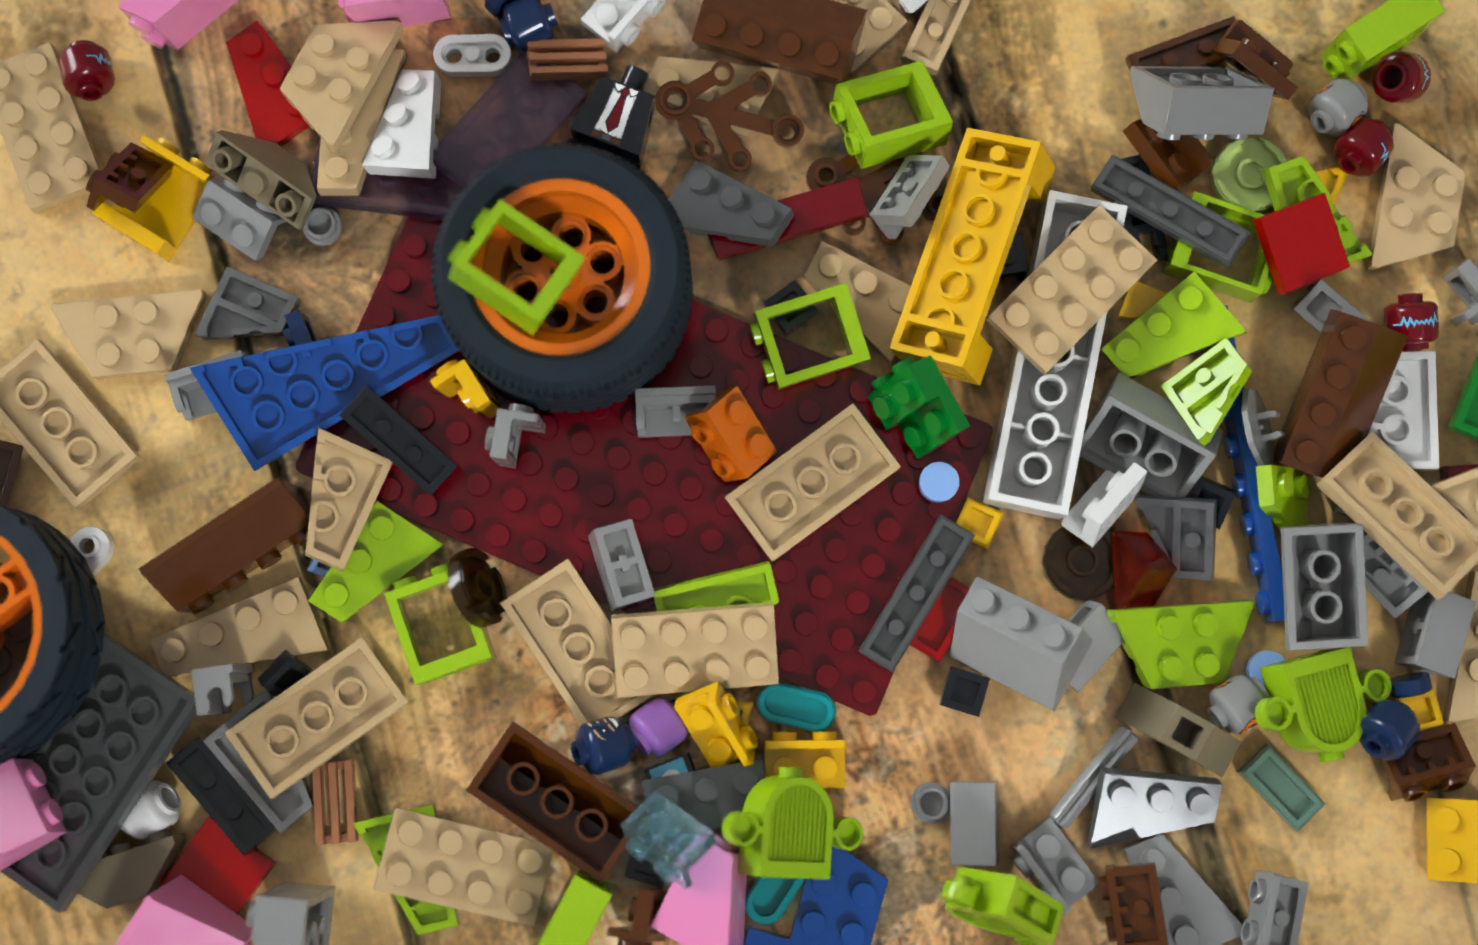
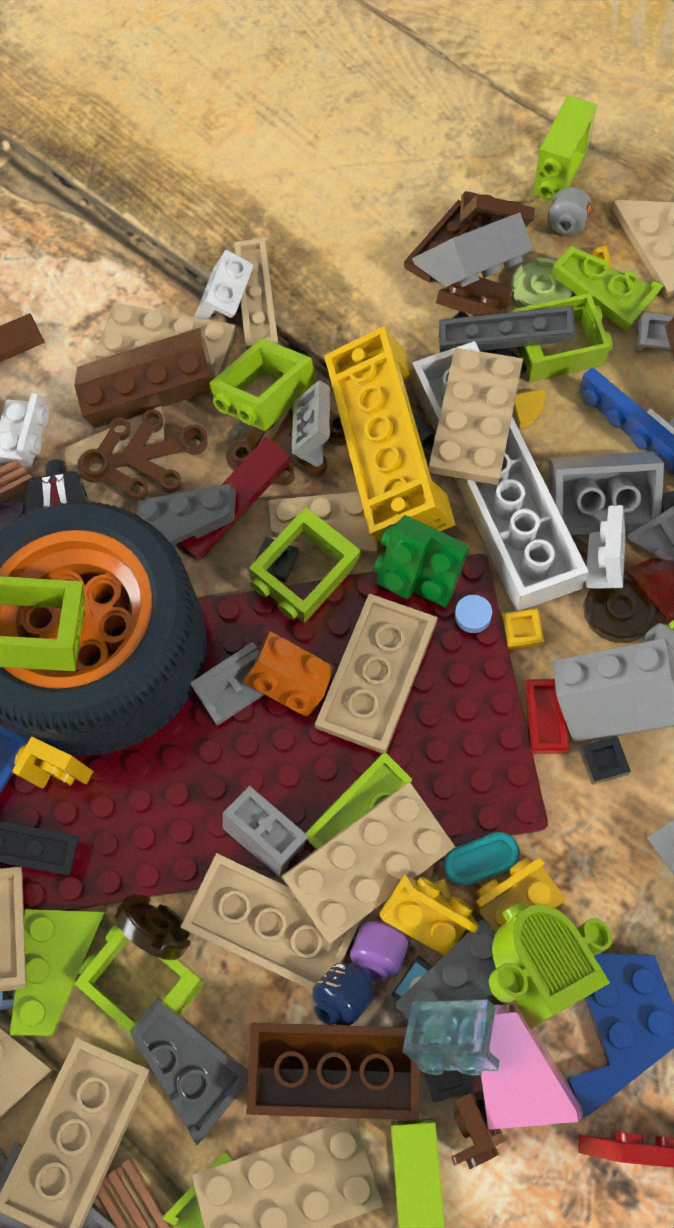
camera: 25 degrees left, 15 degrees down
(283, 673) = (21, 1116): black plate -> none
(442, 722) = (189, 1066): none -> dark grey wing
(505, 437) = (104, 768): light grey bracket -> none
(770, 898) = (569, 1036): teal tile -> none
(916, 593) = (514, 709): dark grey tile -> none
(930, 802) = (642, 867): light grey plate -> none
(1174, 327) = (566, 403): lime wing -> none
(1208, 388) = (622, 424): wing -> none
(1301, 243) = (612, 298): red tile -> none
(1364, 147) = (605, 224): dark red head -> none
(1401, 77) = (596, 169): dark red head -> none

